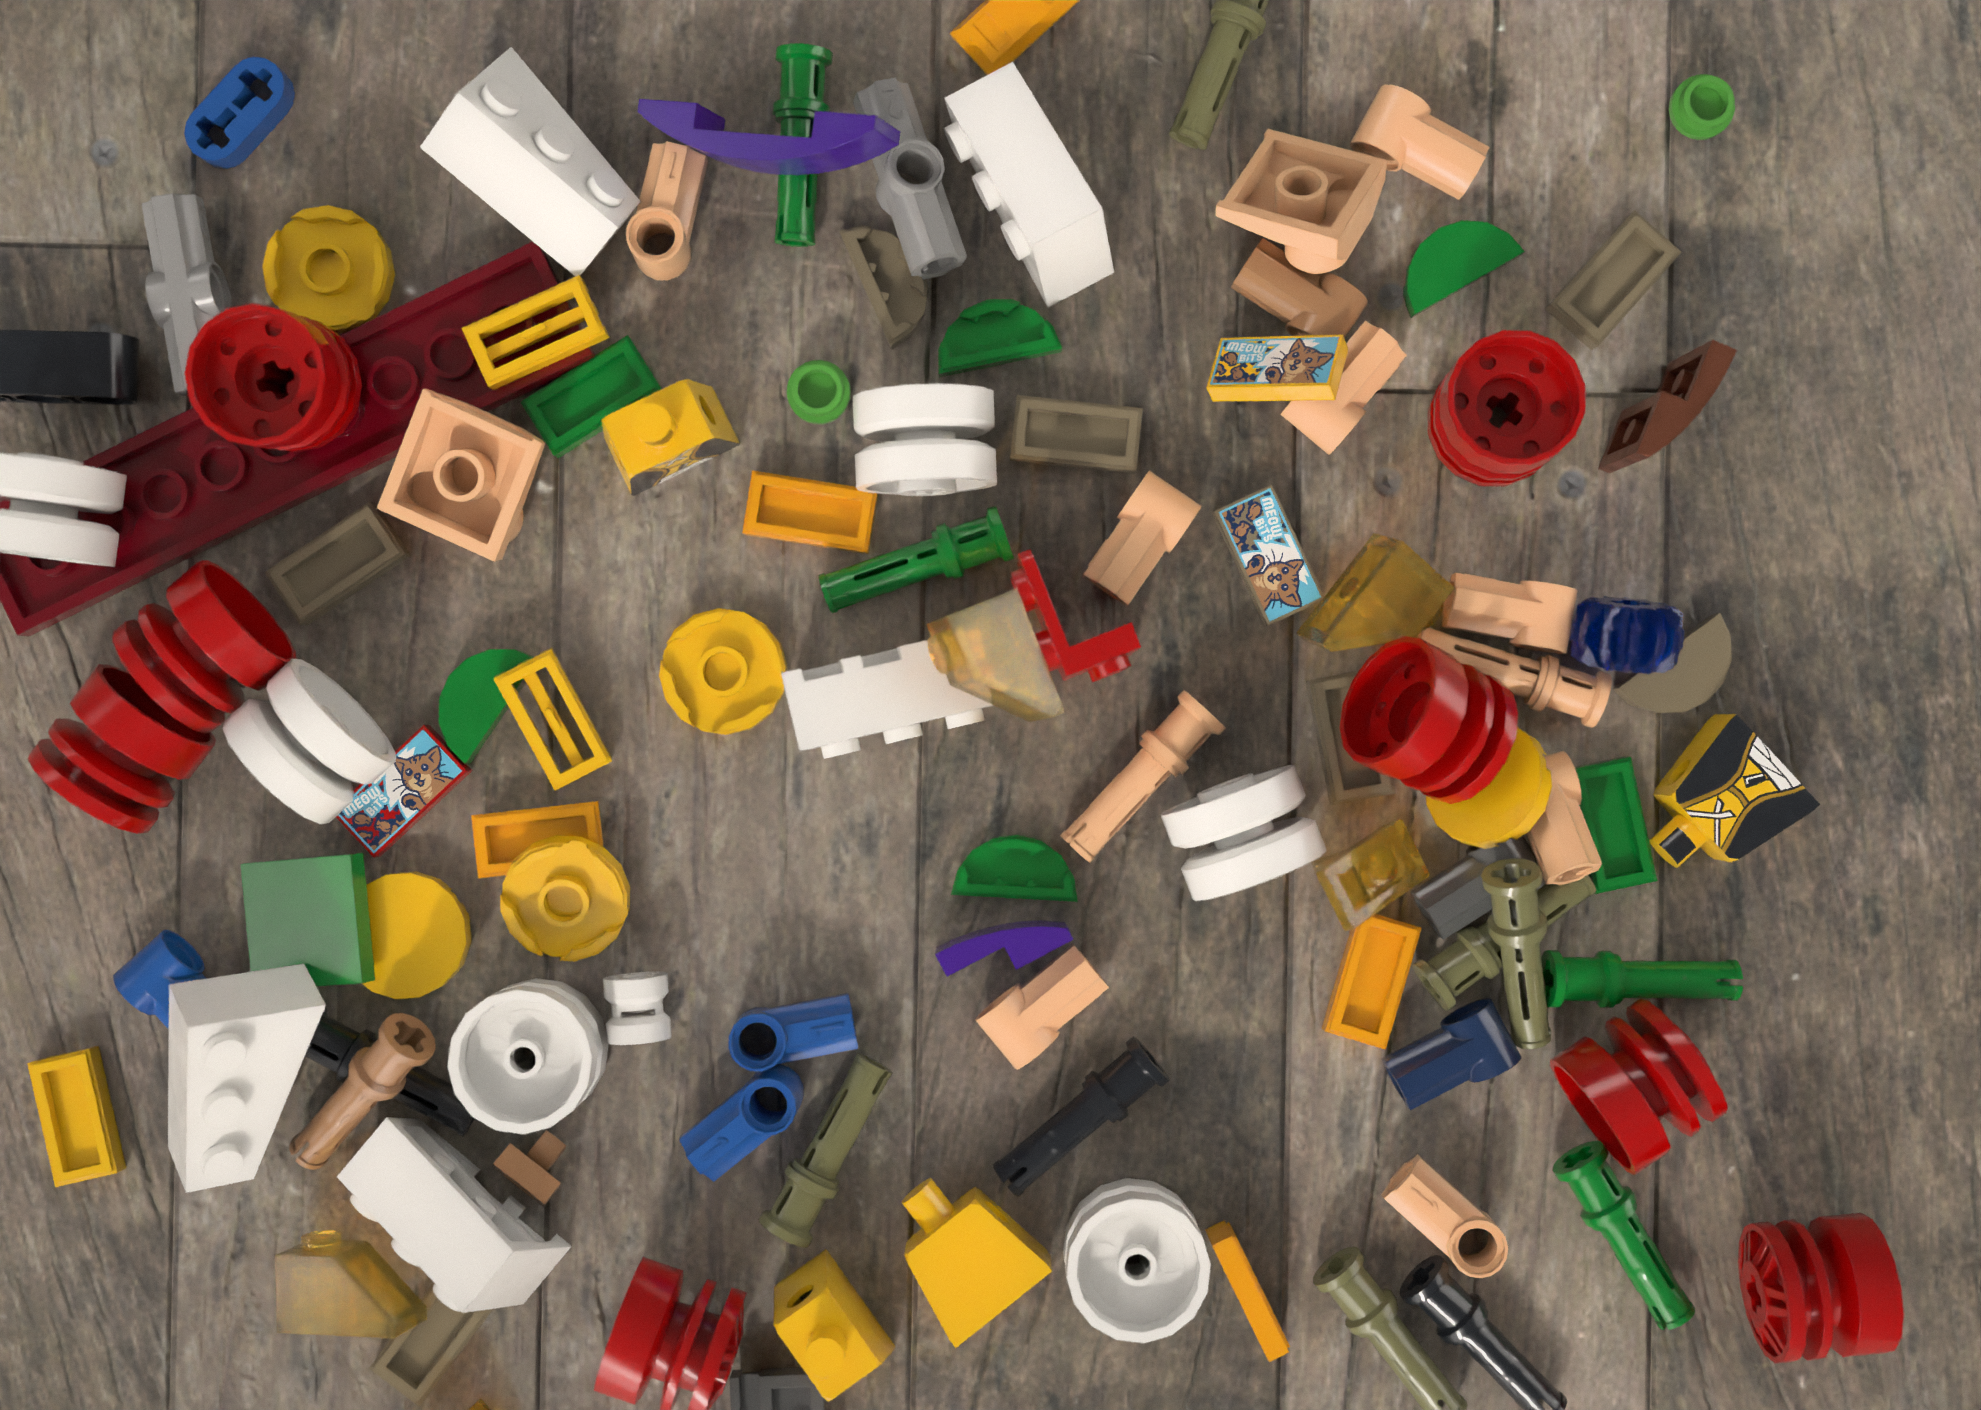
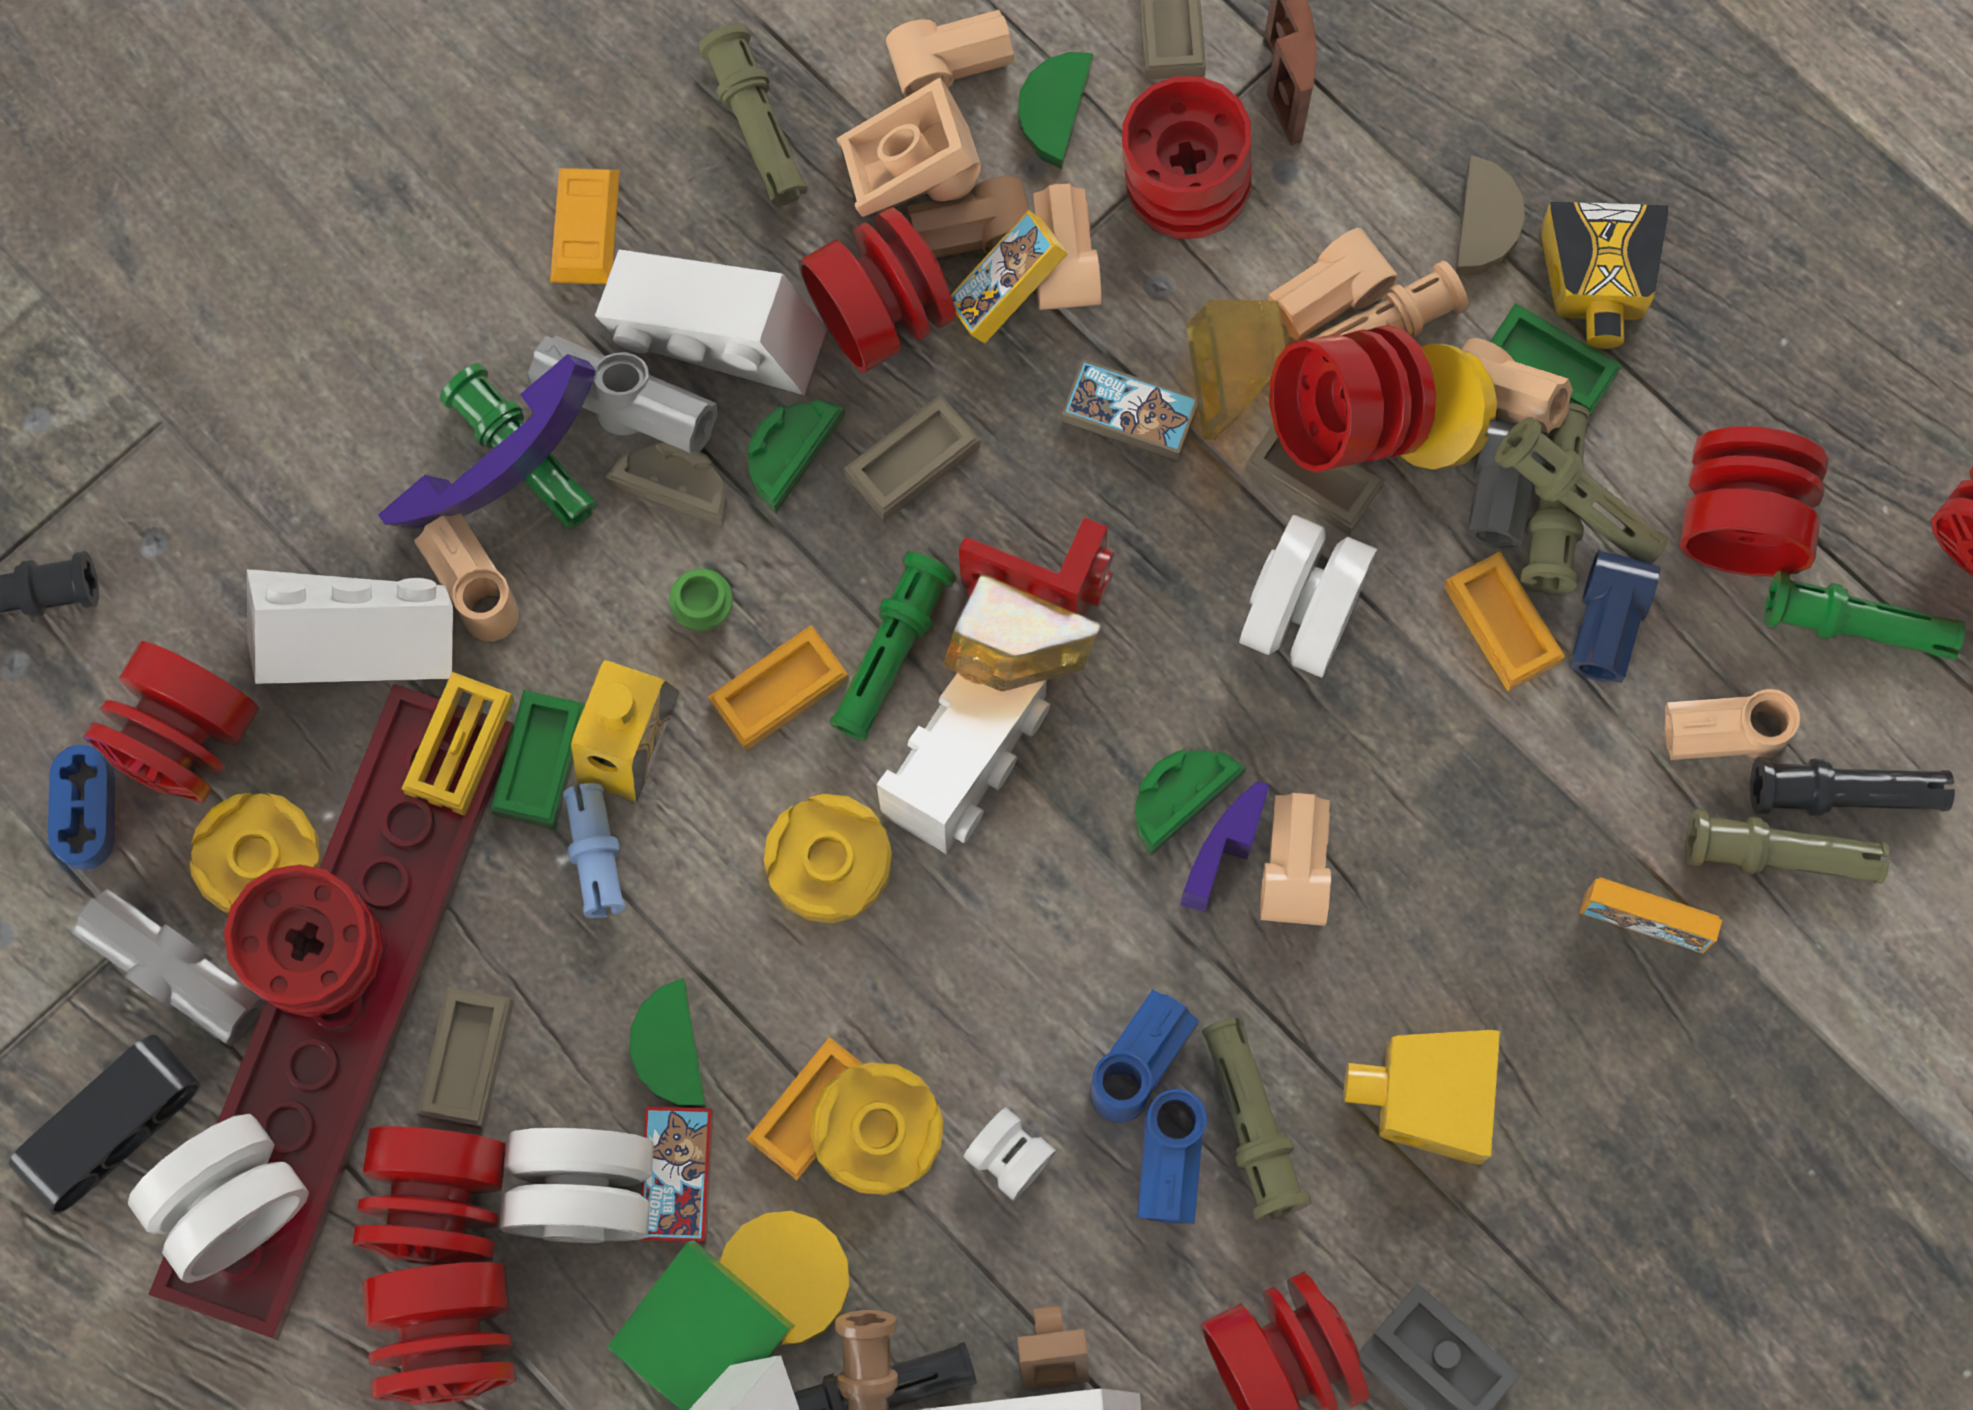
camera: 45 degrees left, 15 degrees down
(333, 118) = (171, 722): none -> red wheel
(462, 475) = (503, 891): light nougat slope -> none
(501, 1082) = (965, 1300): white wheel -> none
(527, 670) = (729, 1031): yellow tile -> none
(563, 504) = (594, 850): none -> light blue pin
(830, 1329) = (1387, 1239): yellow torso -> none
(924, 439) = (813, 547): white wheel -> none
(1104, 1098) = (1408, 885): black pin -> none
(1147, 528) = (1028, 465): light nougat piece -> none
(1162, 754) = (1198, 610): light nougat pin -> none
(1171, 285) = (887, 284): none -> red wheel
(1173, 1267) = (1571, 934): white wheel -> none
(1370, 873) = (1423, 548): clear yellow slope -> none
(1610, 979) = (1662, 459): green pin -> none
(1627, 635) = (1423, 222): clear blue gear -> none

